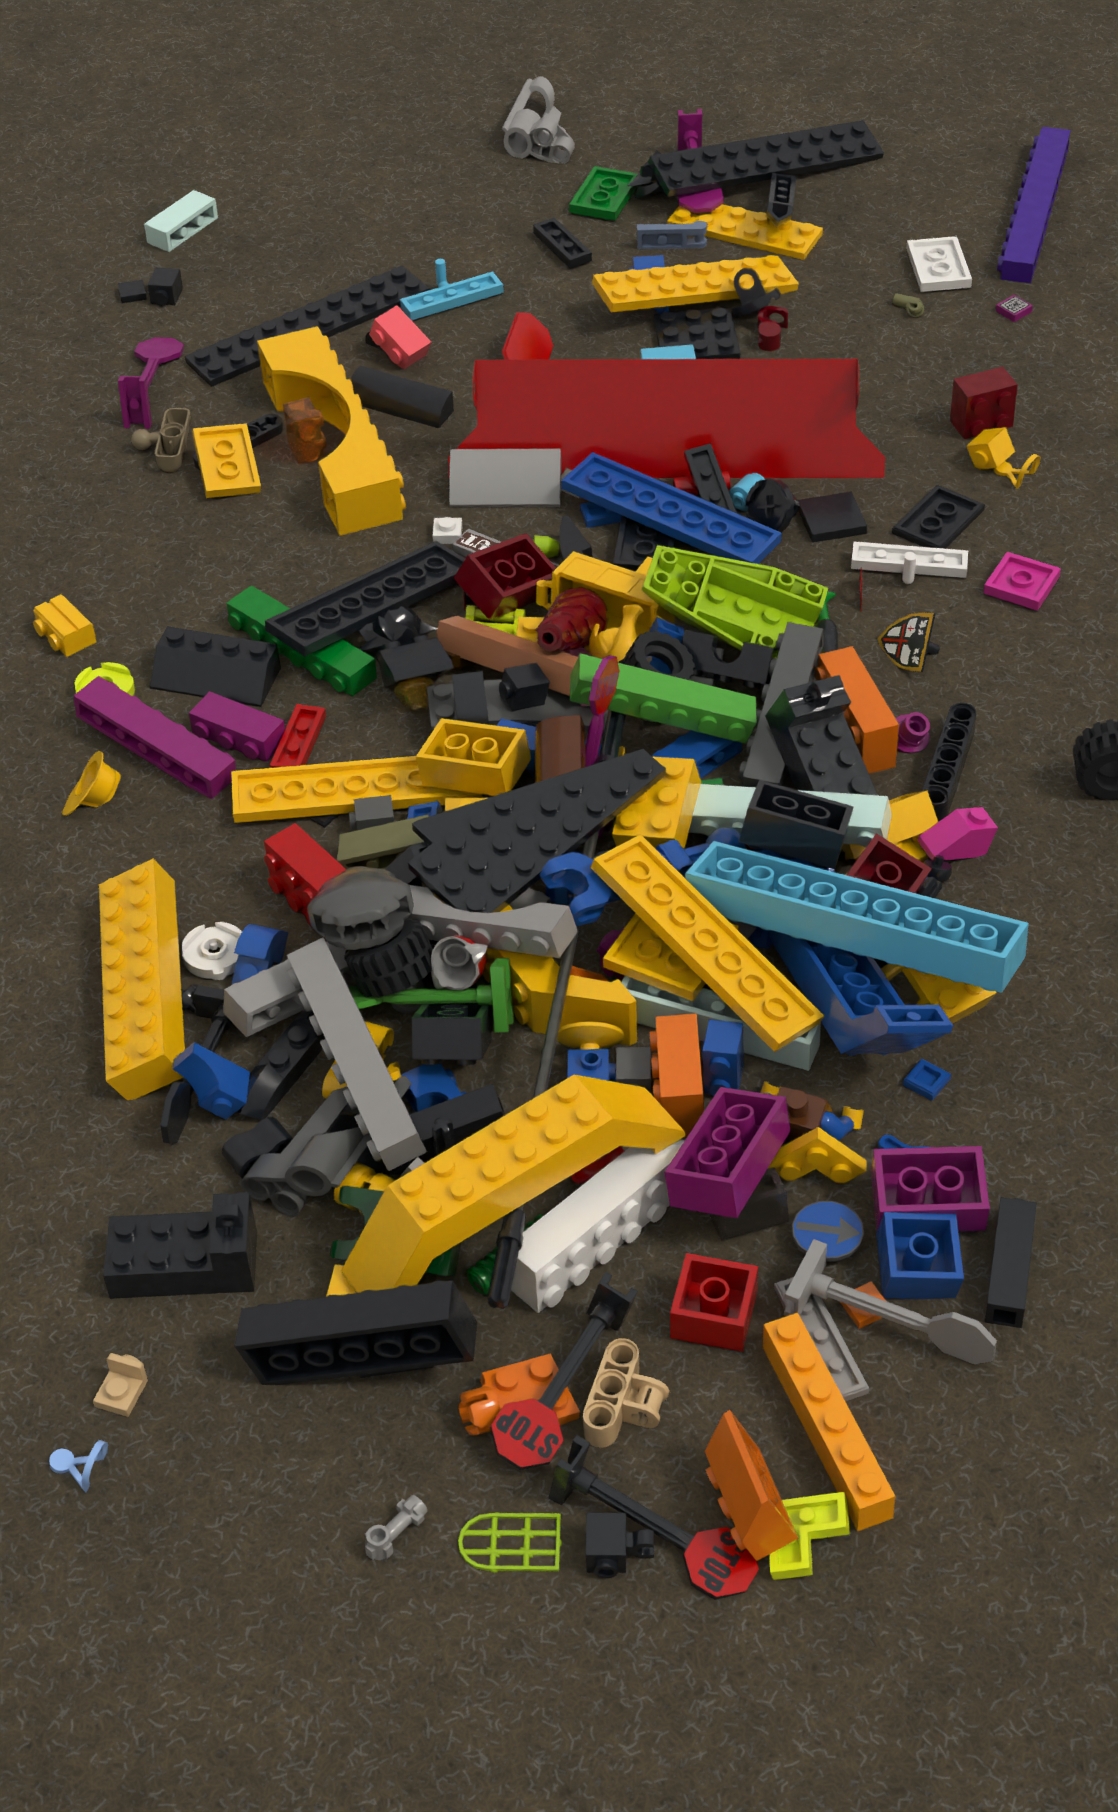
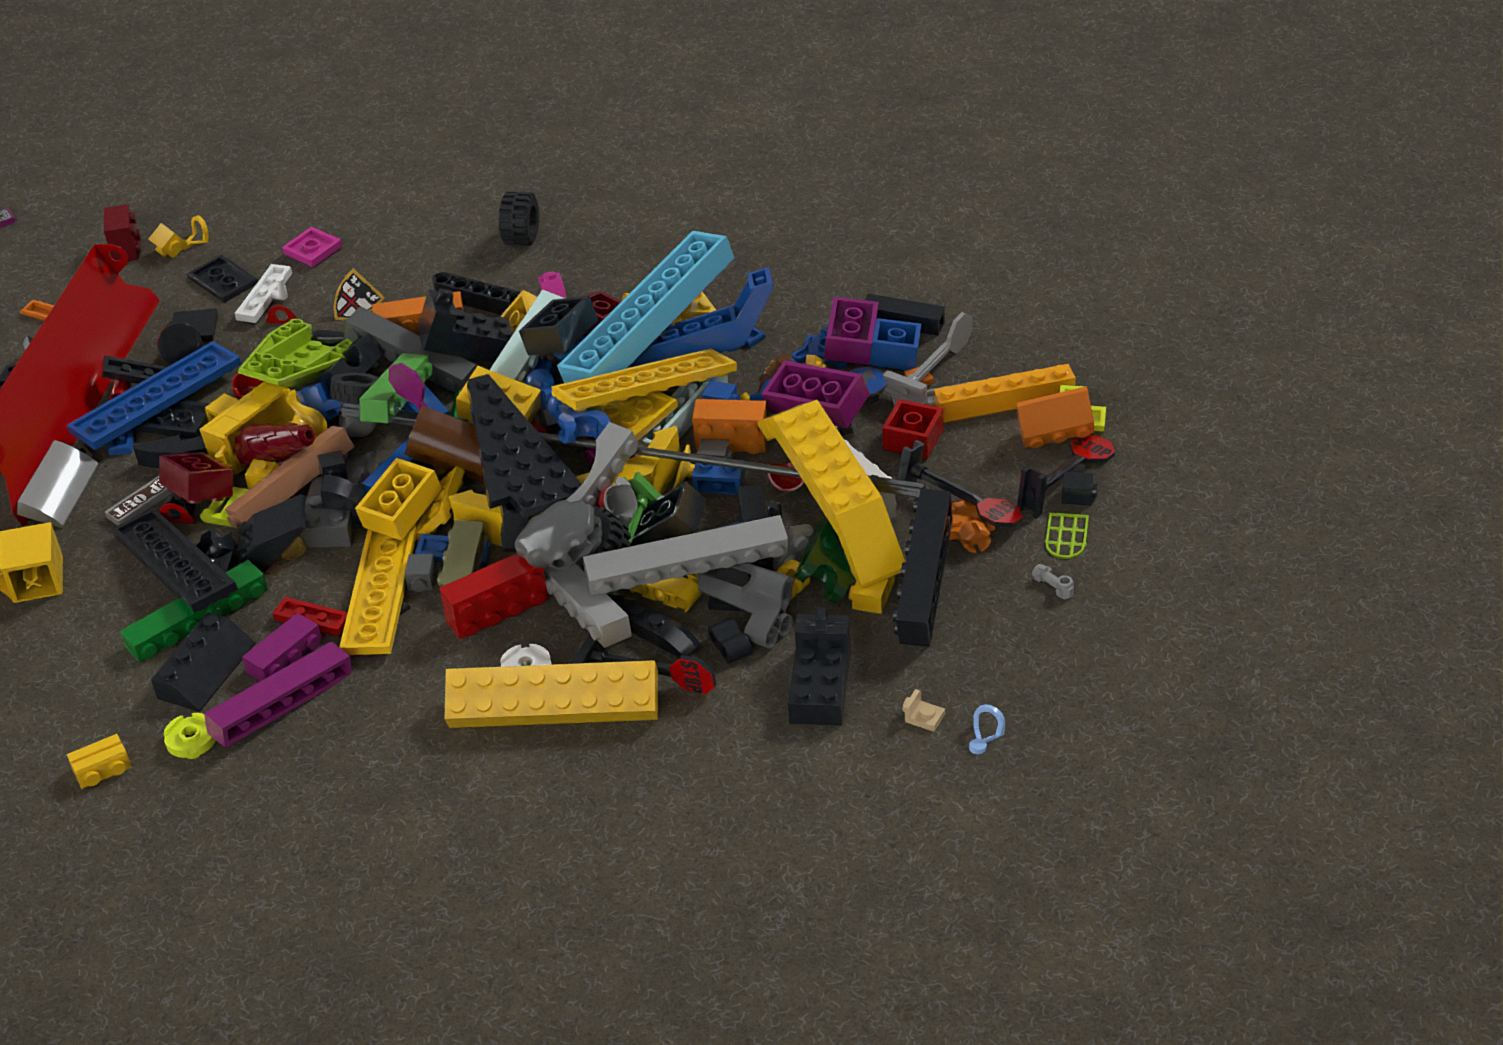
camera: 80 degrees left, 5 degrees down
(95, 785) = (311, 727): yellow piece -> none
(217, 1081) = (668, 649): blue arch -> none
(258, 950) = (545, 630): blue brick -> none
(447, 530) = (96, 526): white plate -> none
(547, 545) = (148, 472): lime hose -> none
(632, 1395) = (973, 475): tan piece -> none
(741, 489) = (145, 355): medium azure brick -> none

